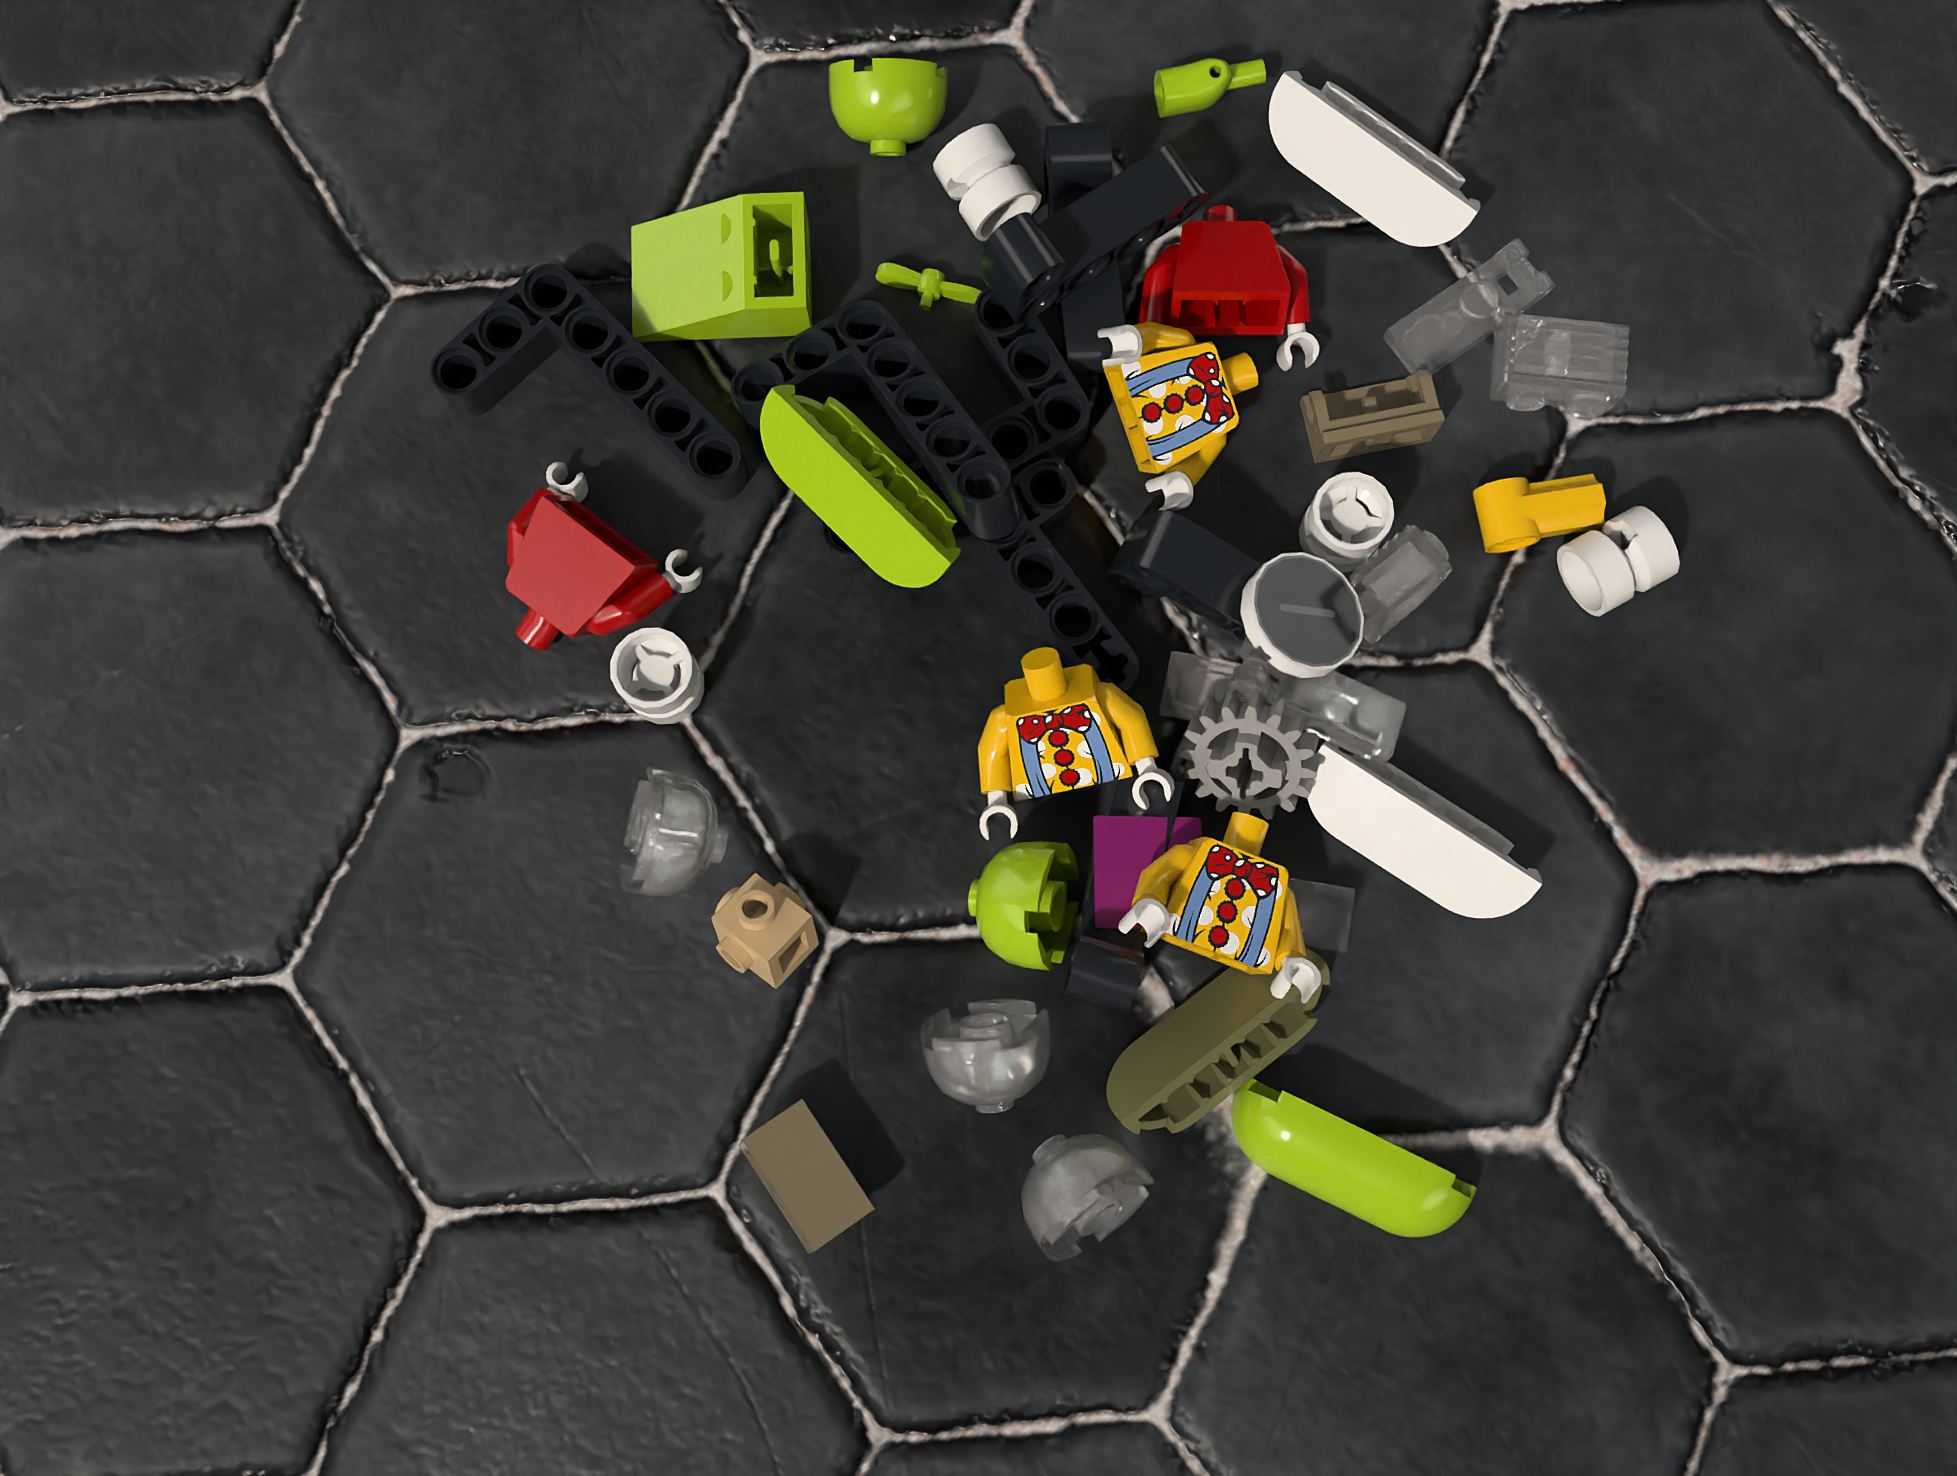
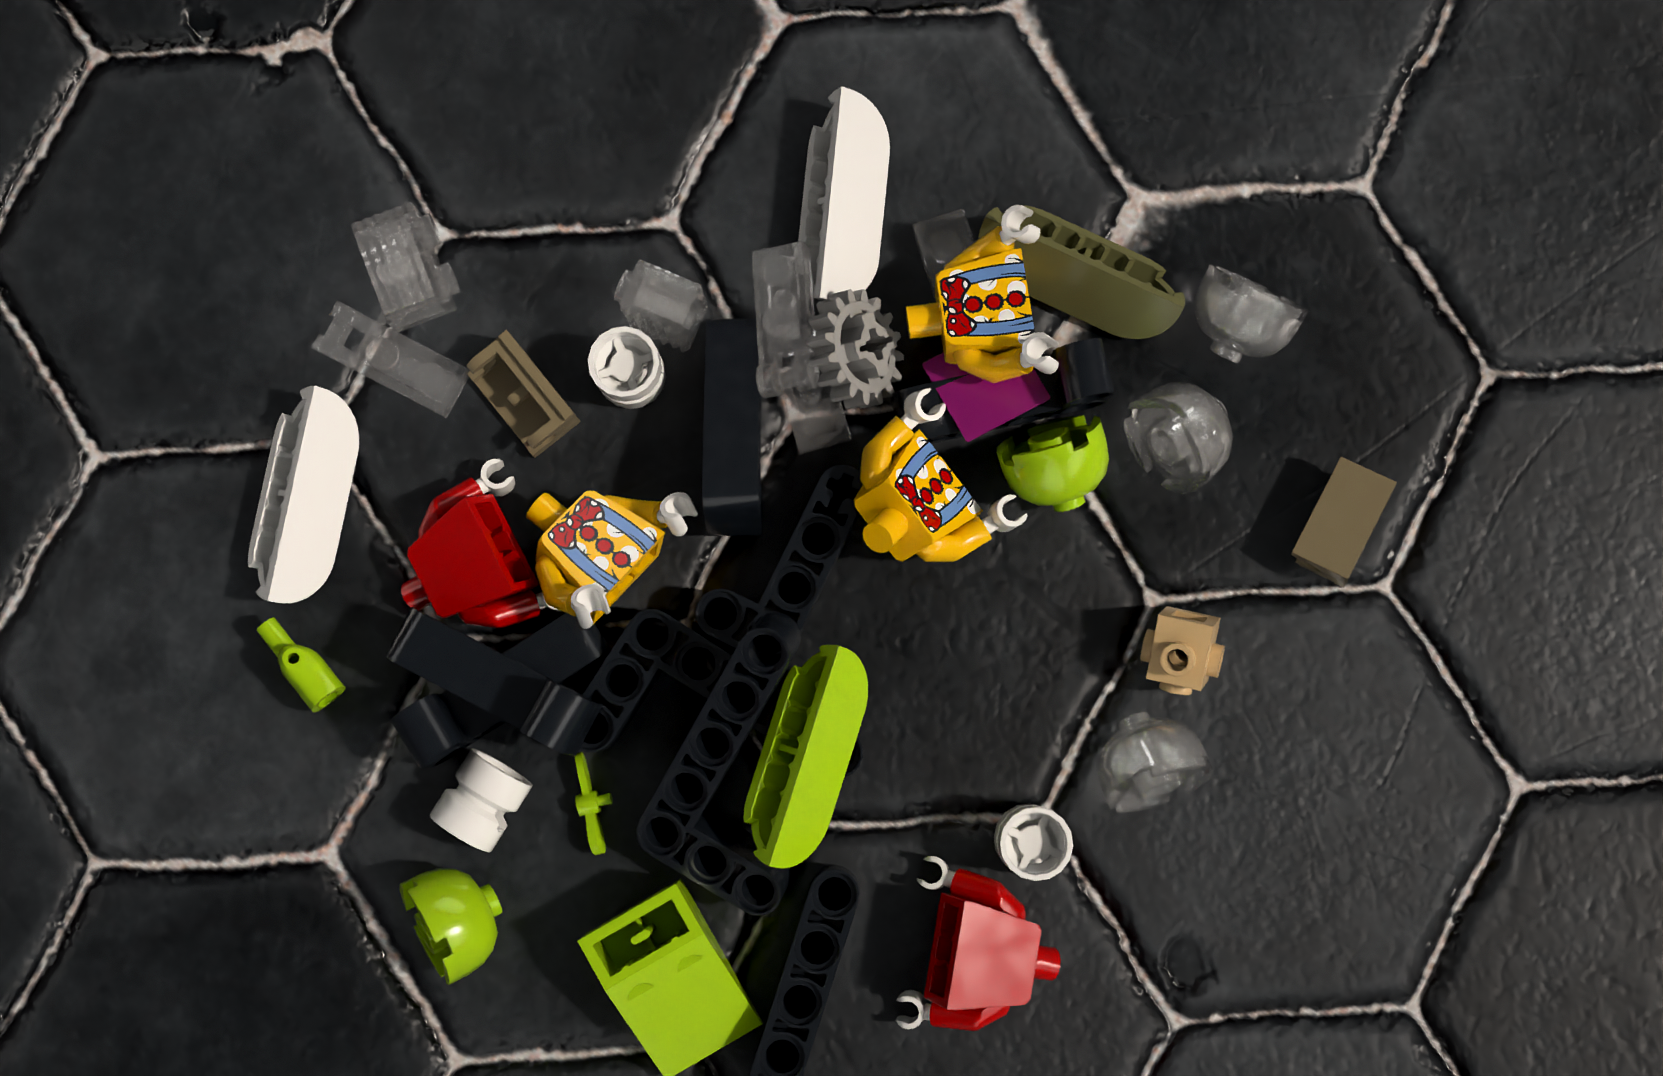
camera: 115 degrees left, 5 degrees up
(1302, 614) = (730, 358): black tile -> none
(1346, 1164) = (1115, 137): lime brick -> none
(1520, 513) = (543, 237): yellow piece -> none
(1626, 556) = (543, 143): white wheel -> none

